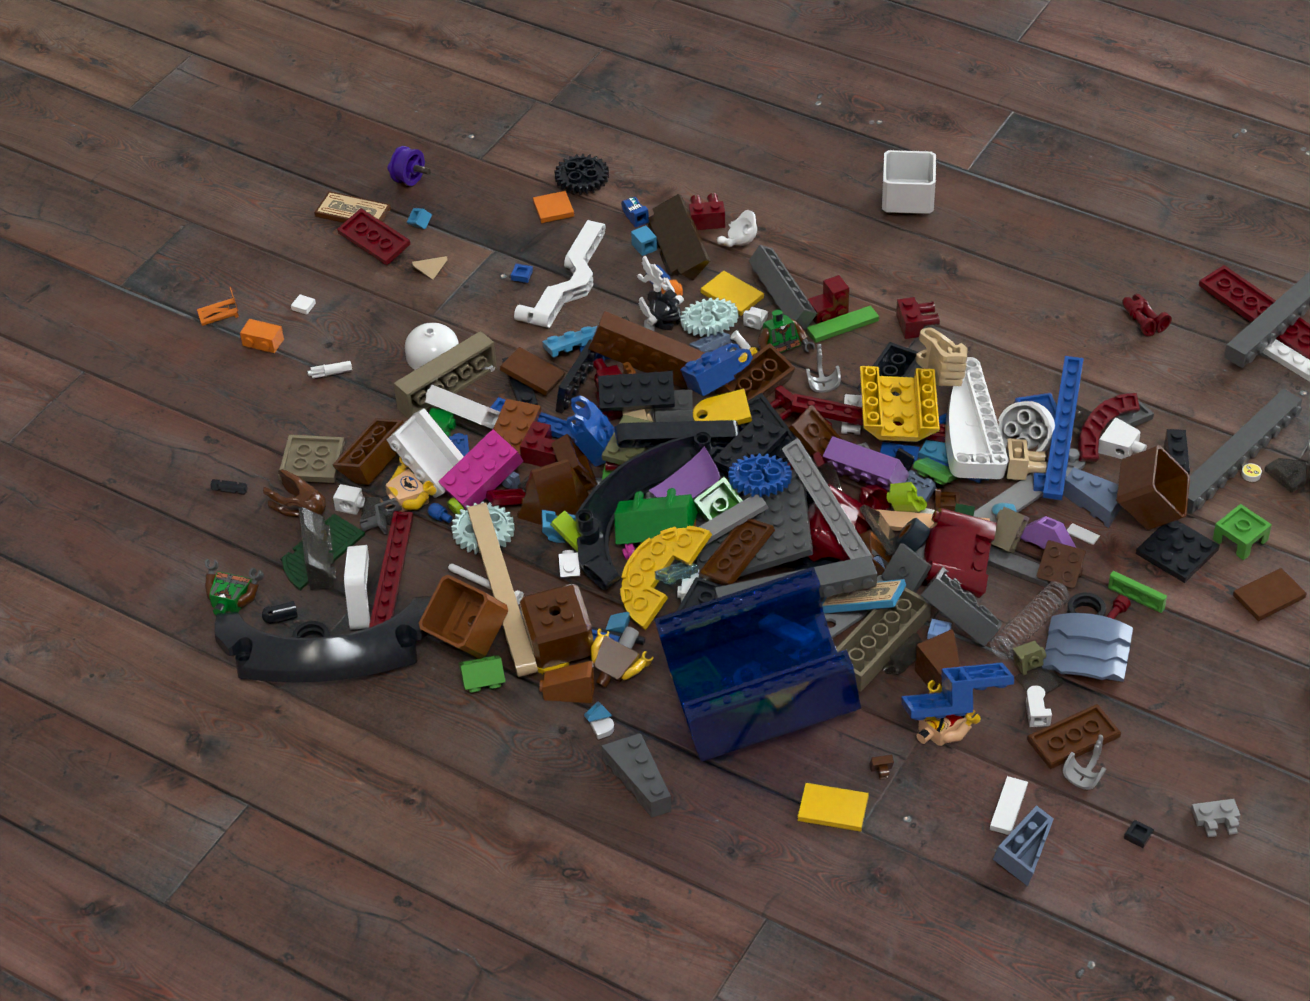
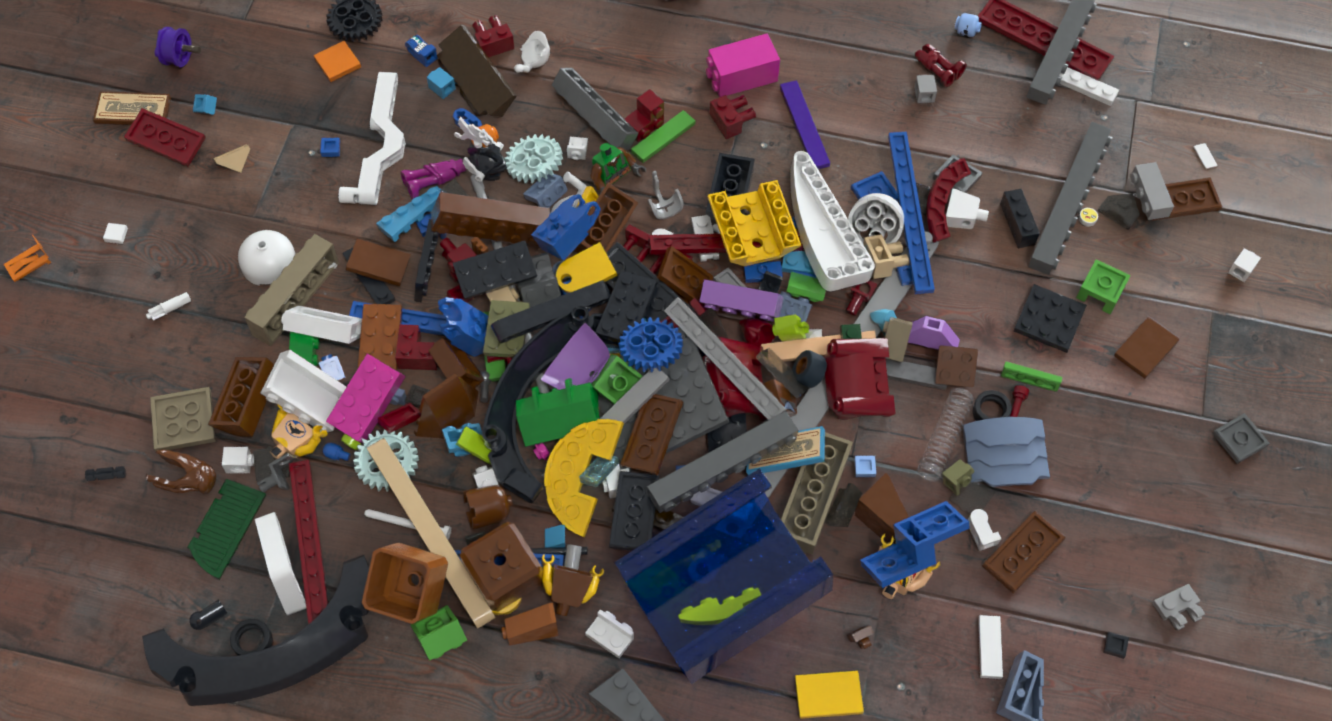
camera: 20 degrees left, 15 degrees up
(230, 591) = (146, 604): torso -> none
(261, 335) = (83, 283): orange brick -> none
(316, 549) = (224, 533): clear smoke slope -> none
(562, 574) = (487, 506): none -> reddish brown cylinder
(593, 312) = (436, 173): none -> magenta piece
(597, 712) = (569, 650): dark azure slope -> none
(602, 727) = (578, 663): white tile -> none
(641, 709) = (610, 633): none -> white bracket
(732, 289) = (546, 121): yellow tile -> none
(908, 566) = (818, 410): dark grey plate -> none
(941, 276) = (743, 65): none -> dark pink brick
(943, 356) = (780, 164): tan piece -> none
(946, 499) = (824, 316): reddish brown tile -> none
(961, 608) = (882, 441): dark grey wedge -> none
(987, 340) = (804, 124): none -> dark purple tile
(987, 490) = (860, 297): none -> dark red bracket
(1072, 768) = (1051, 601): light grey helmet -> none
(1083, 534) = (959, 321): white window -> none
(1093, 494) = (960, 277): sand blue wedge -> none
(1121, 332) = (925, 88): none -> light grey brick
(1153, 487) = (1017, 264): reddish brown plate -> none
(1186, 285) = (968, 25): none -> light blue head

